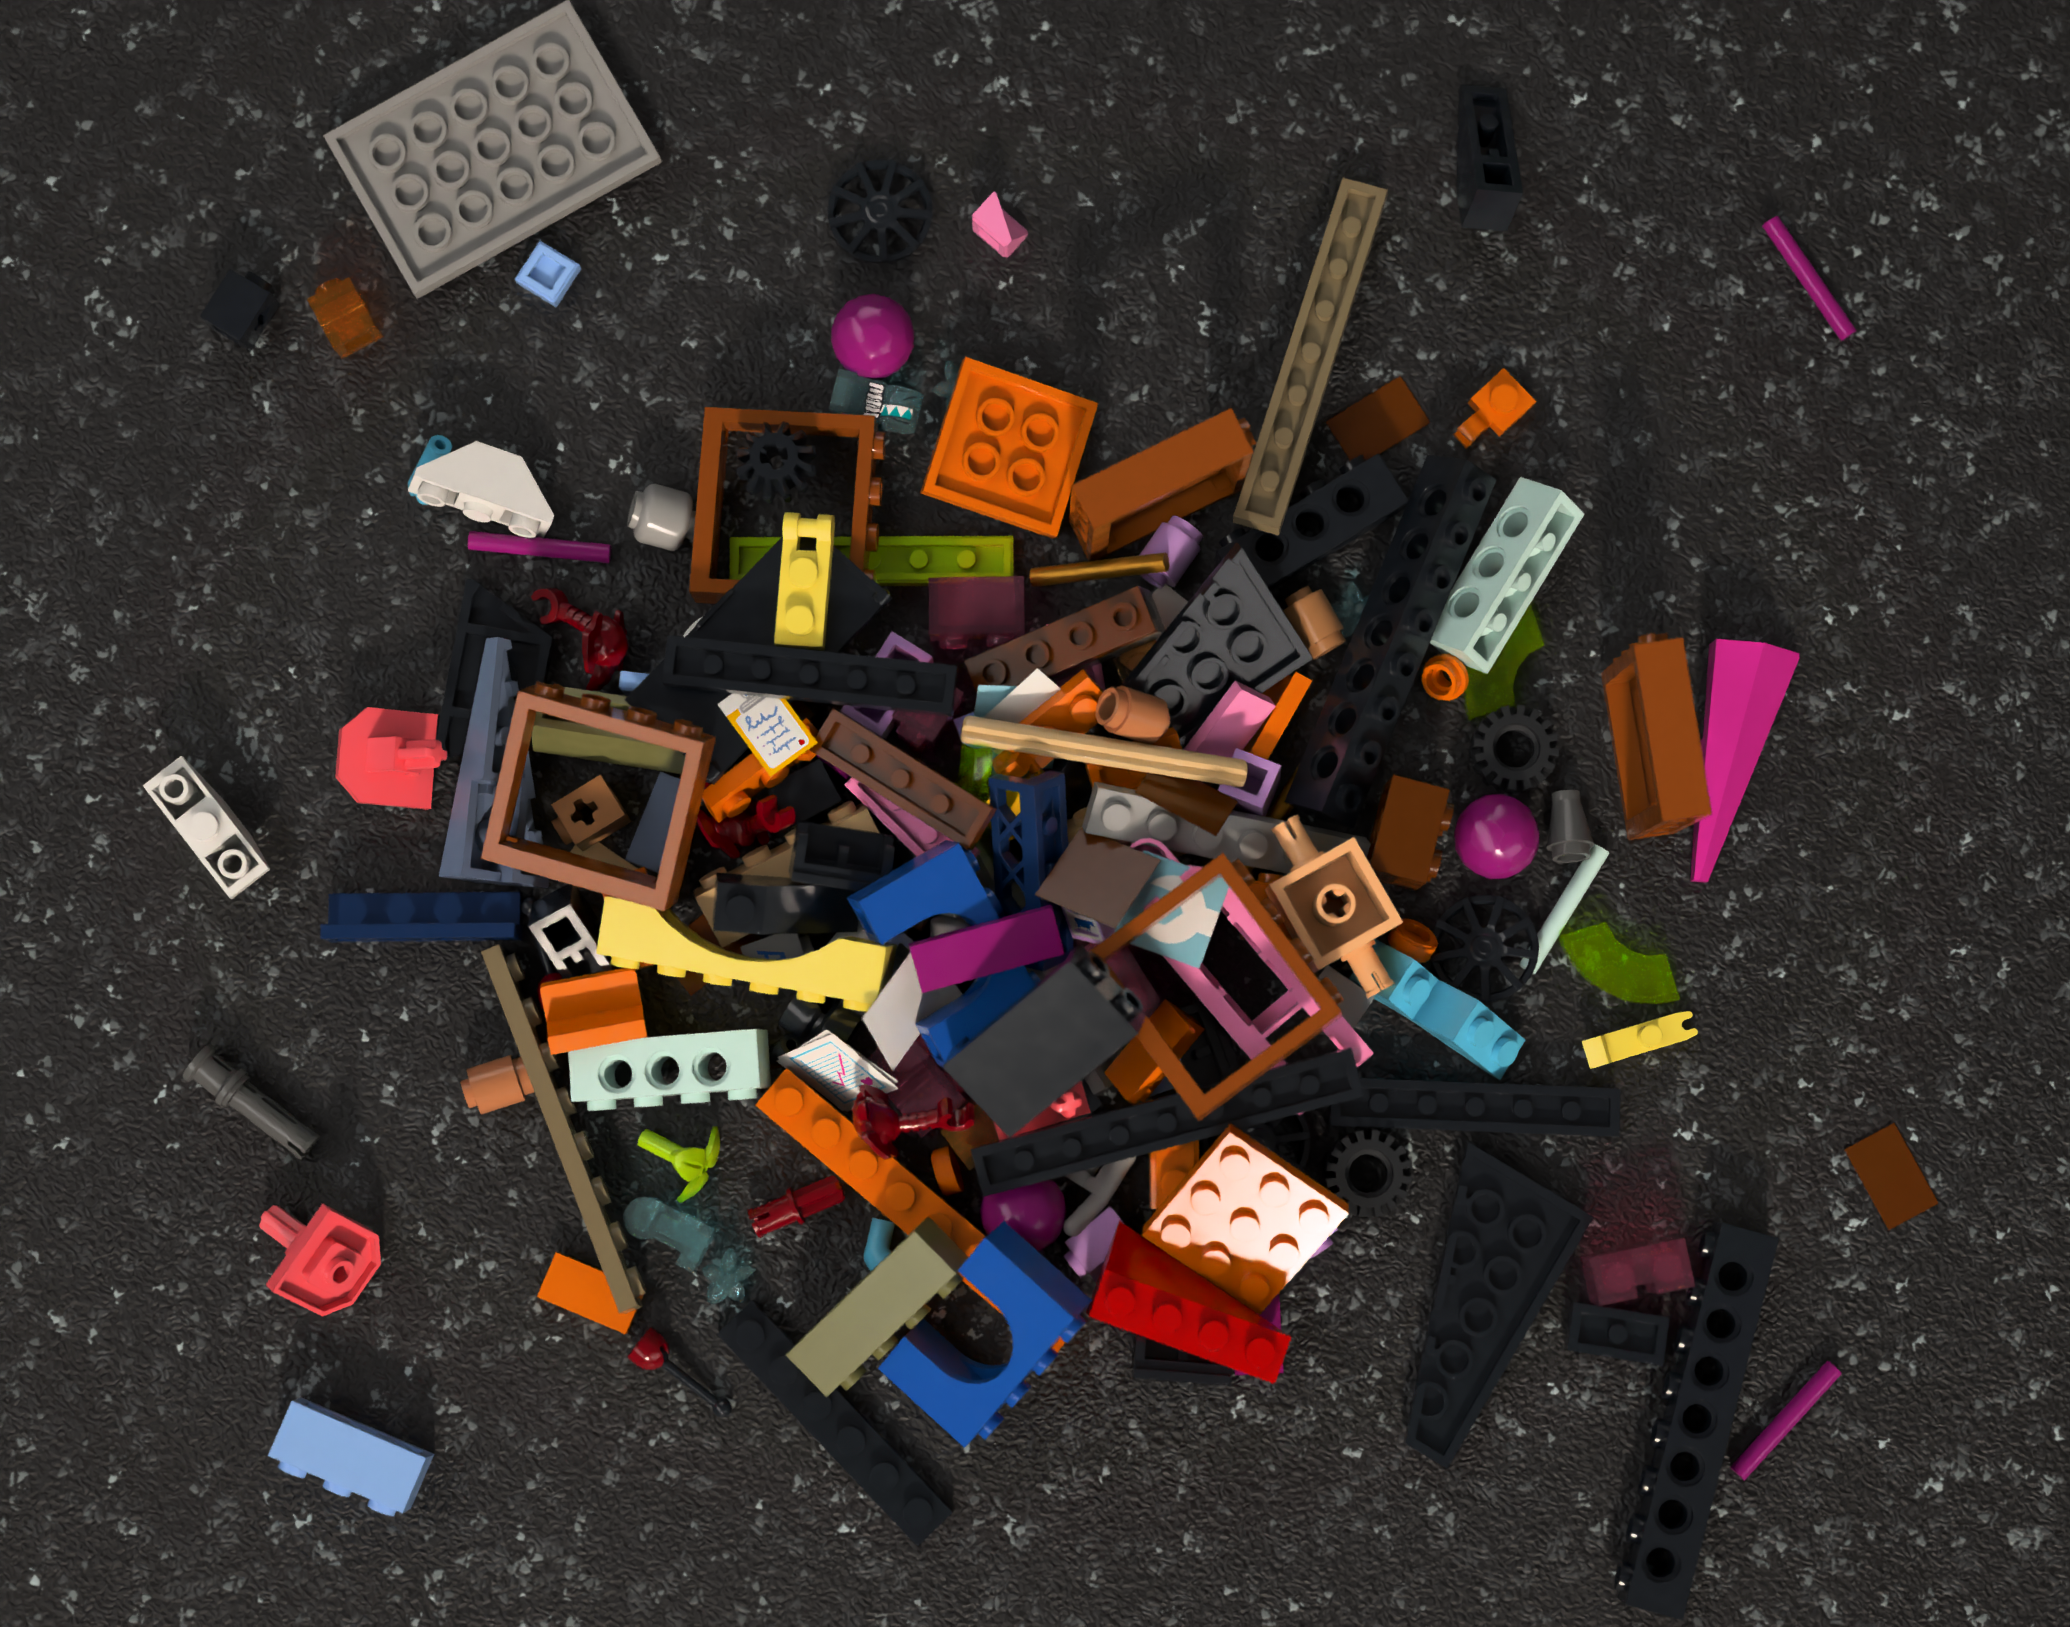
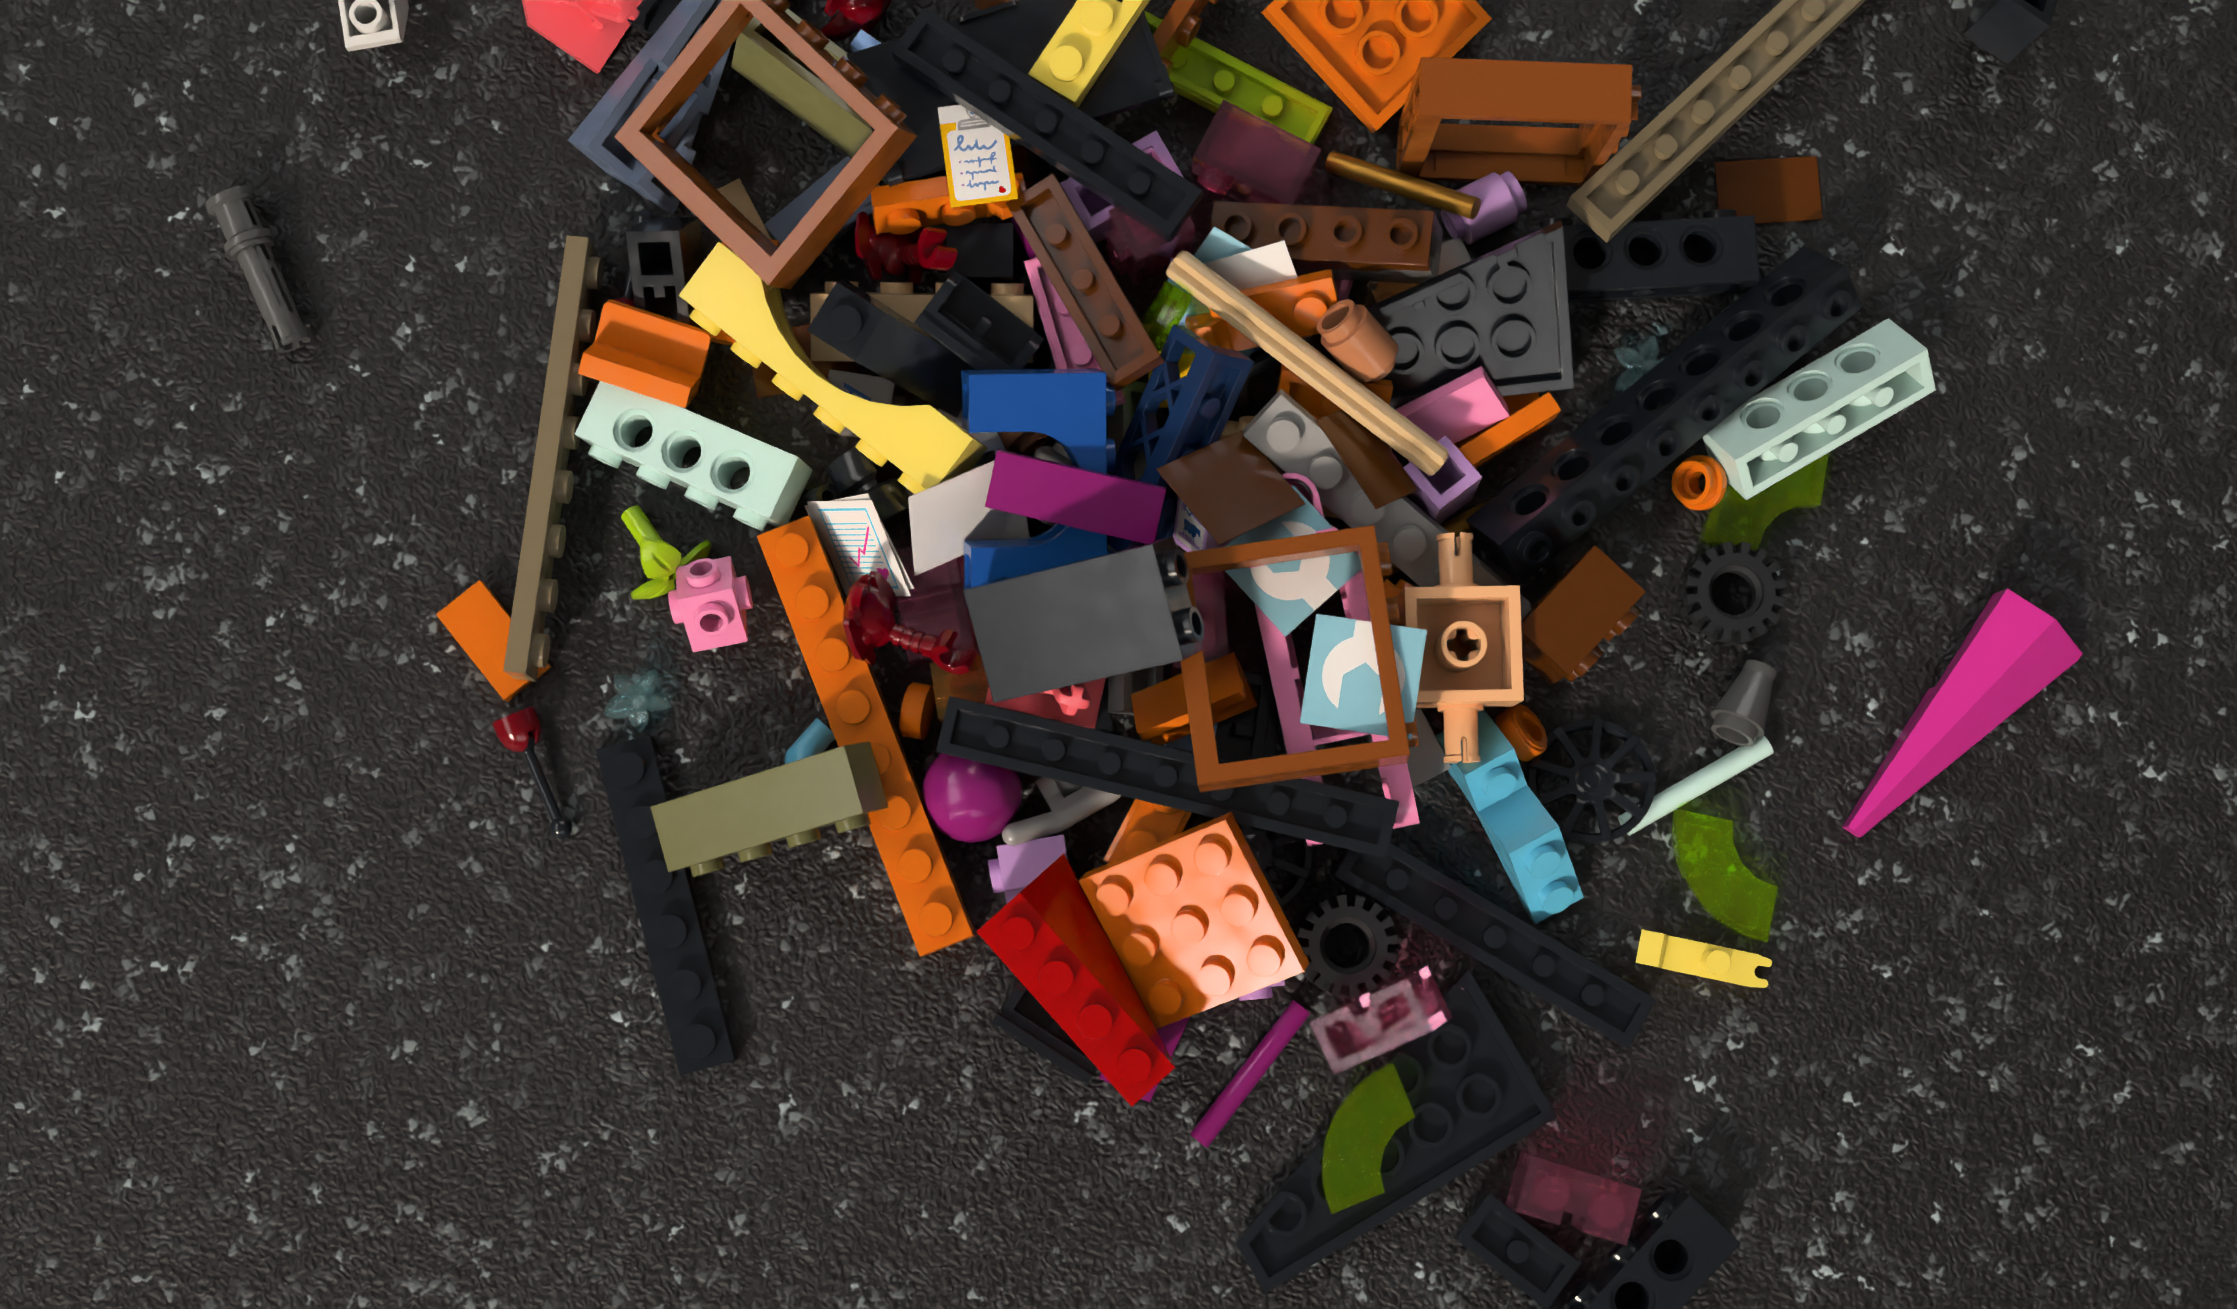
camera: 30 degrees right, 0 degrees up
(324, 1261) = (243, 462): coral piece -> none
(350, 1457) = (161, 673): light blue brick -> none
(424, 917) = (531, 176): dark blue fence -> none
(496, 1084) = (510, 379): nougat brick -> none
(607, 813) = (770, 168): medium nougat brick -> none
(674, 1227) = (608, 616): clear light blue leg -> none
(739, 1167) = (711, 603): none -> bright pink brick
(796, 1205) = (748, 664): dark red axle -> none
(1039, 1309) = (929, 900): blue arch -> none
(1261, 977) = (1345, 679): none -> medium azure sticker
(1314, 621) = (1595, 354): medium nougat brick -> none
(1347, 1309) = (1250, 1073): none -> magenta bar
(1425, 1217) = (1381, 1020): none -> clear pink brick
(1454, 1312) = (1358, 1138): none -> clear neon green tile
(1495, 406) = (1899, 236): orange plate -> none
(1496, 836) = (1666, 671): magenta piece -> none
(1655, 738) = (1892, 652): dark orange window -> none
(1891, 1176) = (1890, 1244): reddish brown sticker -> none

